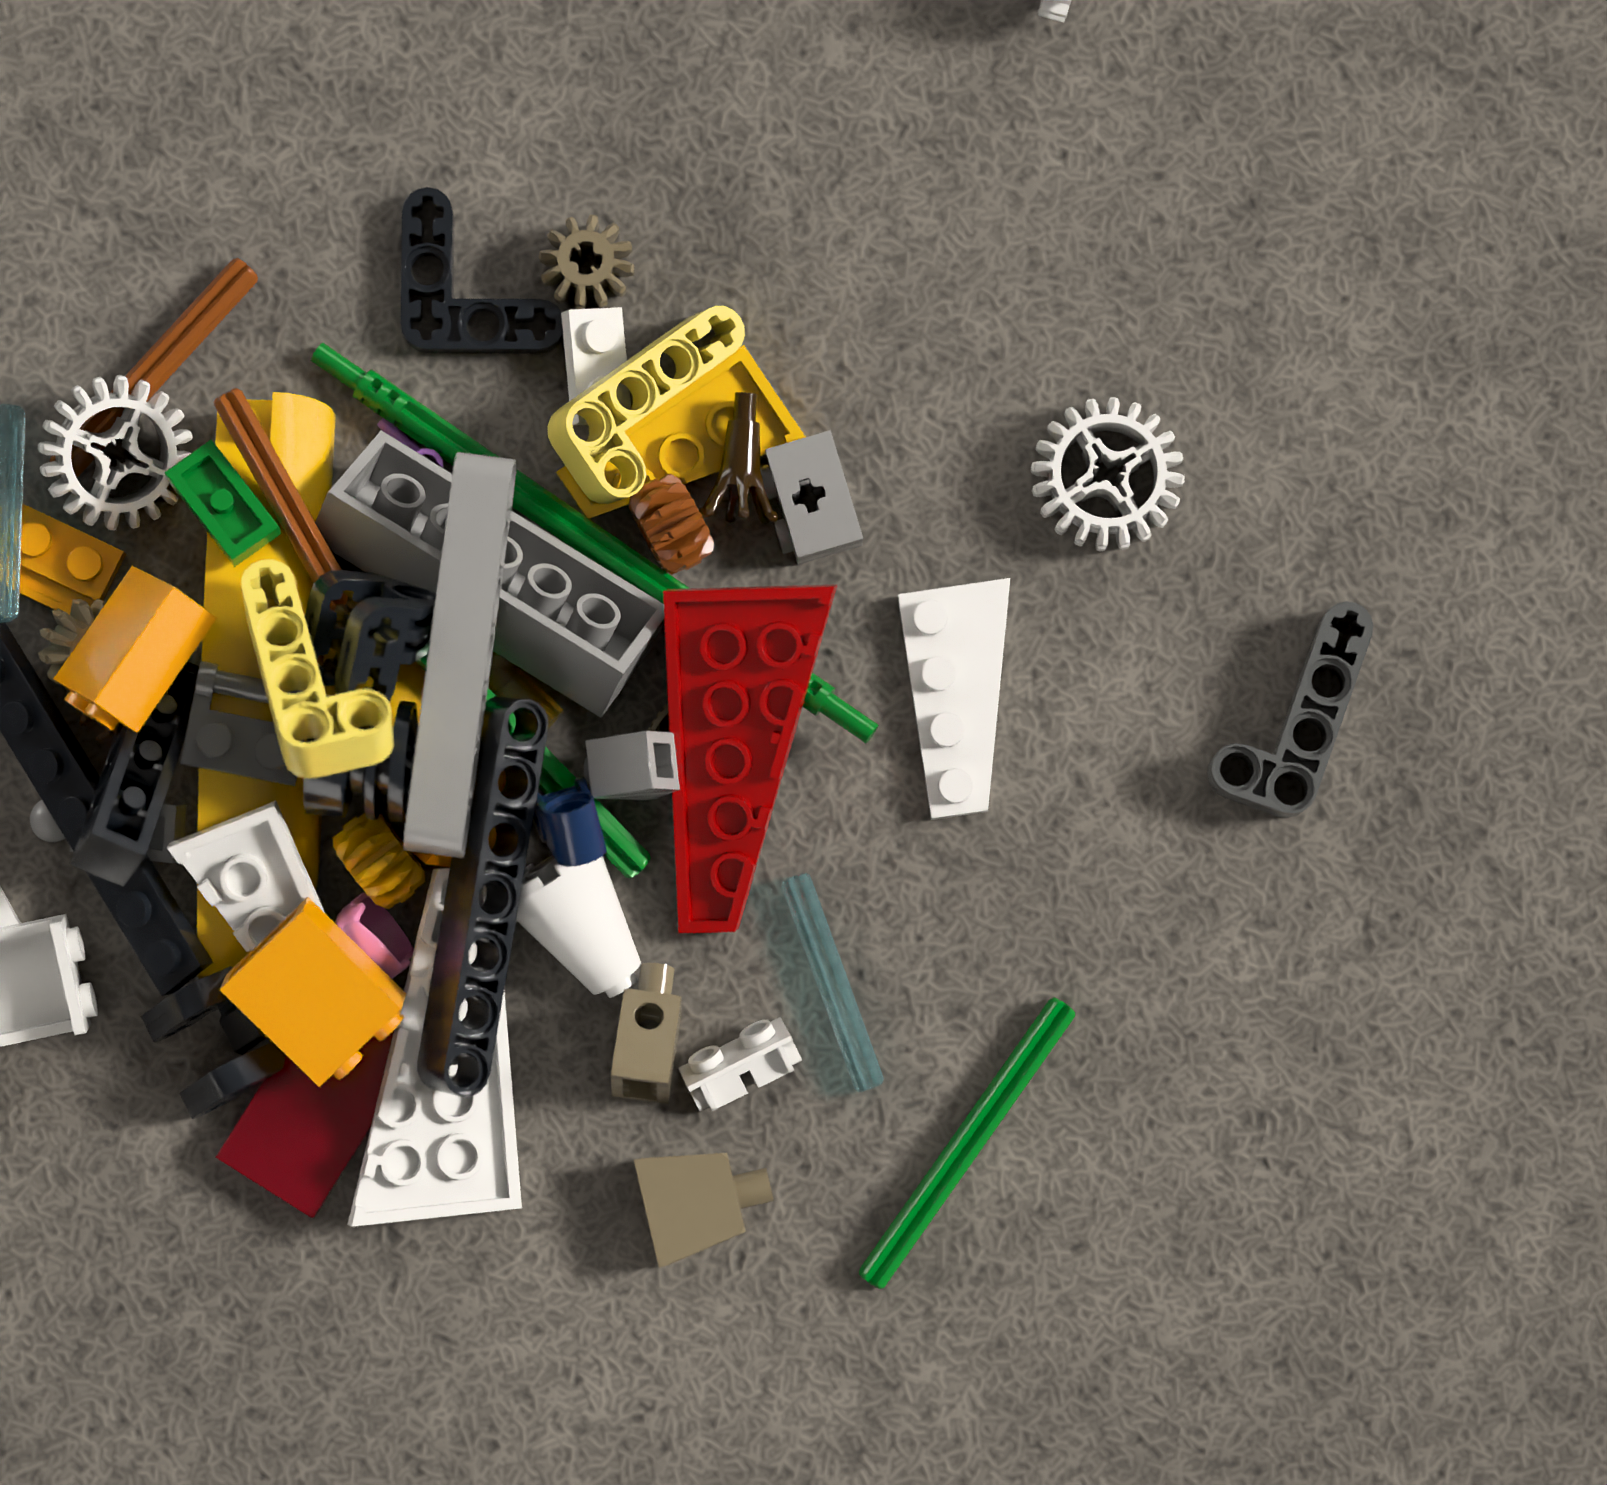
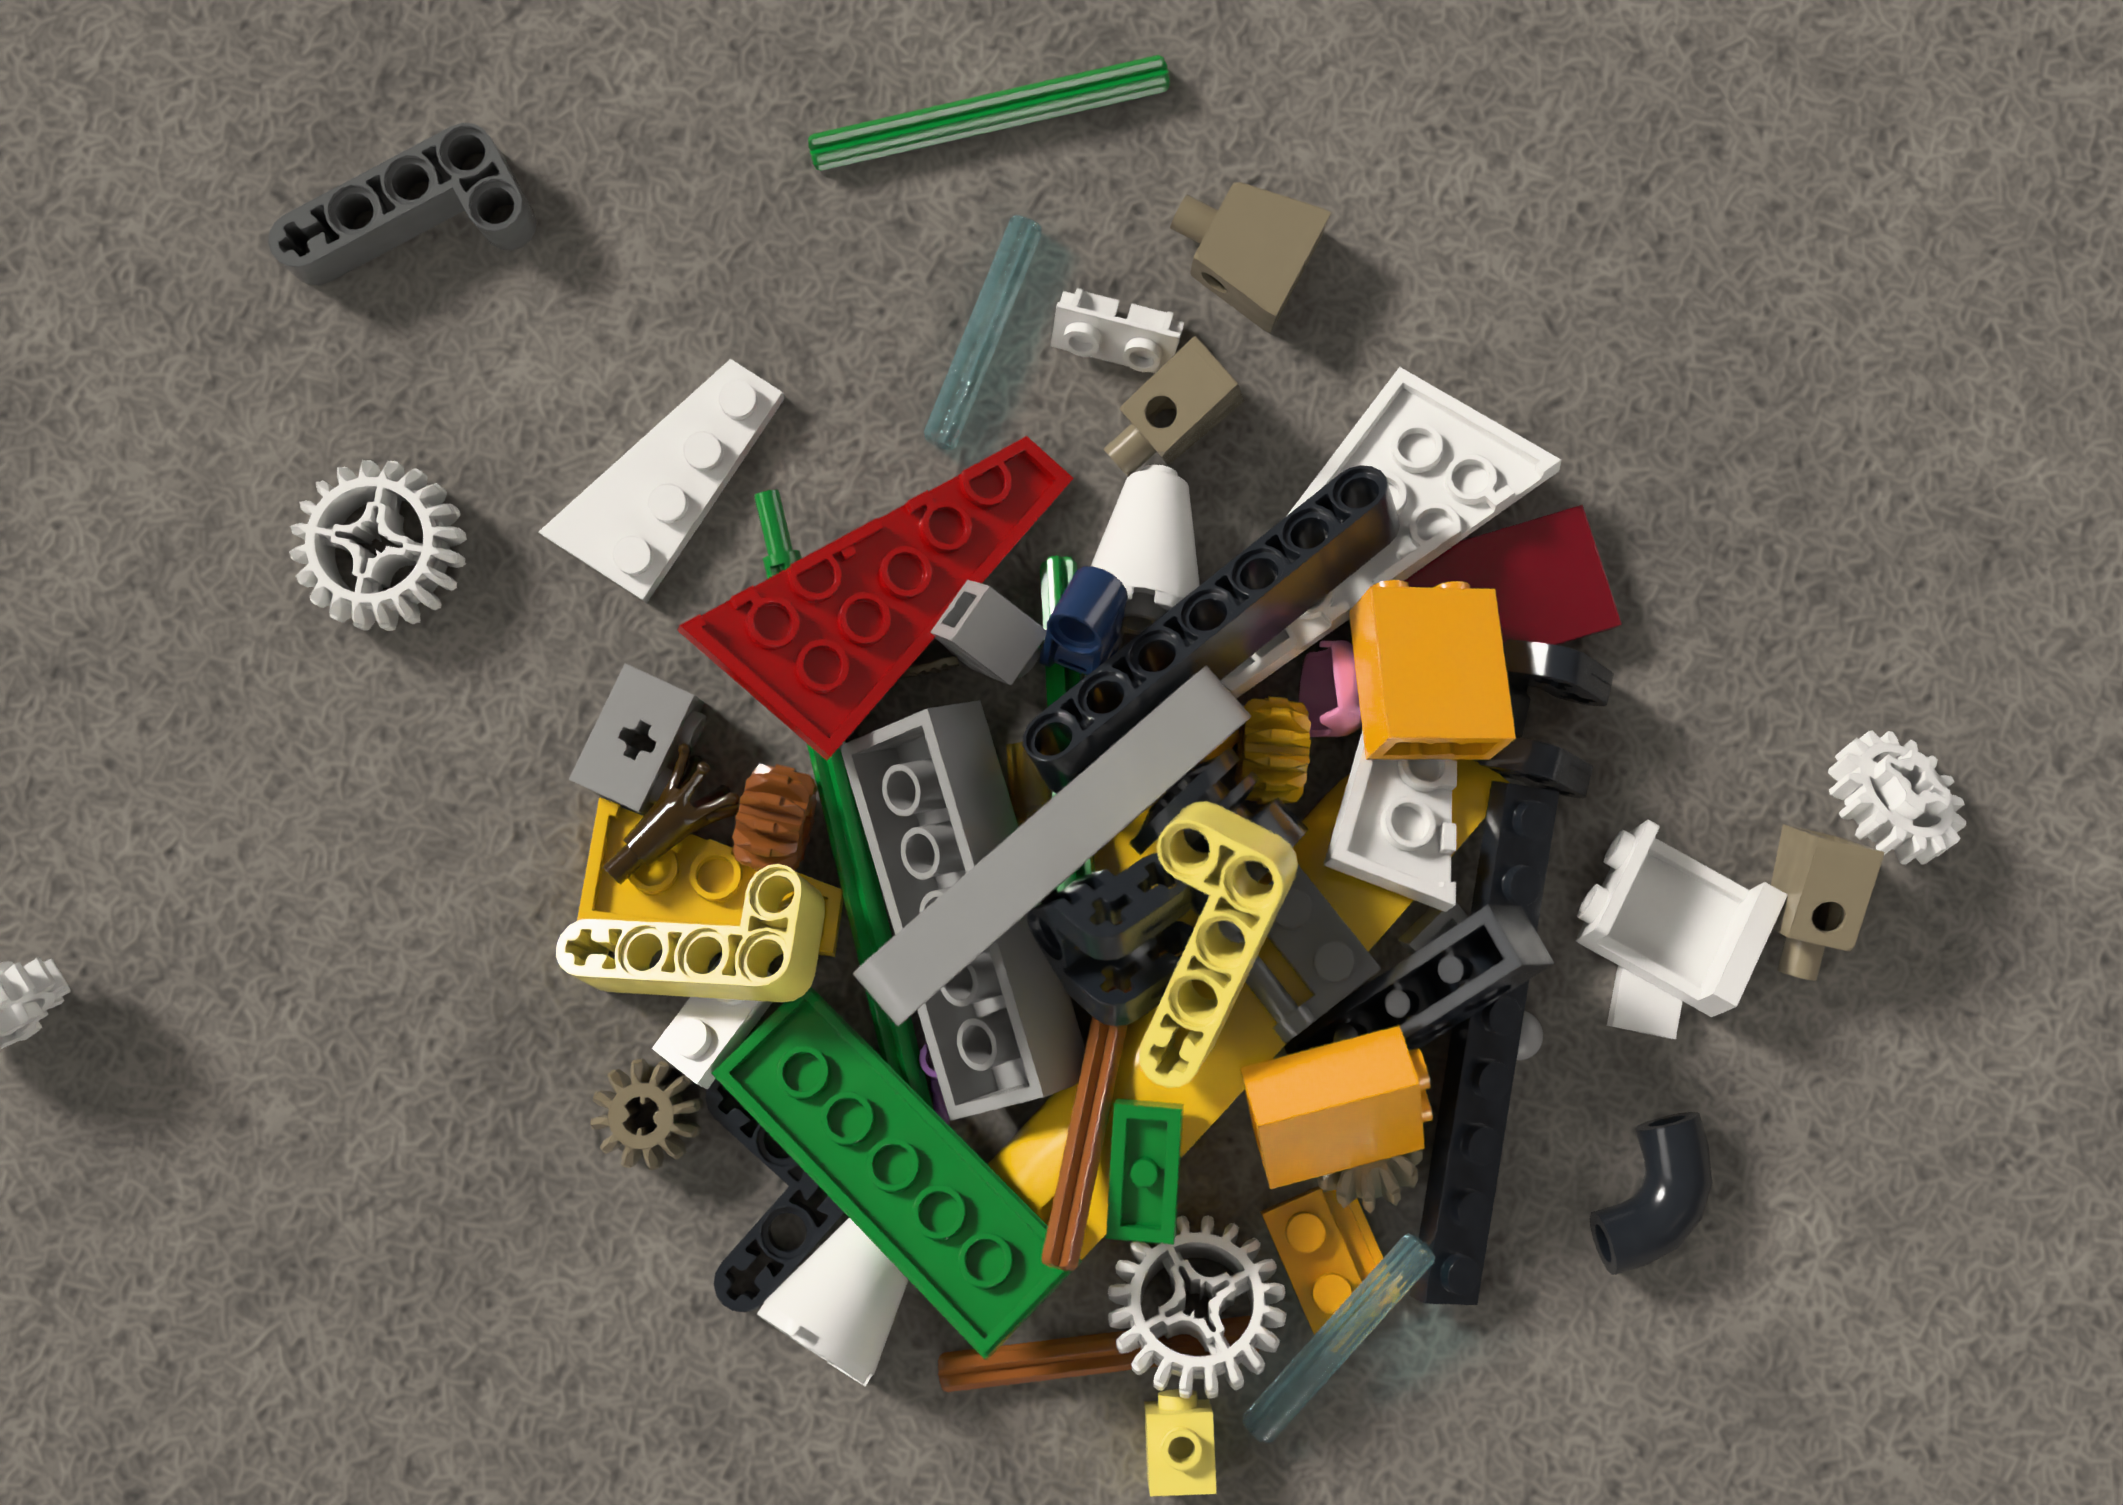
camera: 135 degrees left, 0 degrees up
(51, 356) = (1180, 1445): none -> light yellow brick
(352, 270) = (840, 1302): none -> white cone
(391, 367) = (894, 1169): none -> green tile

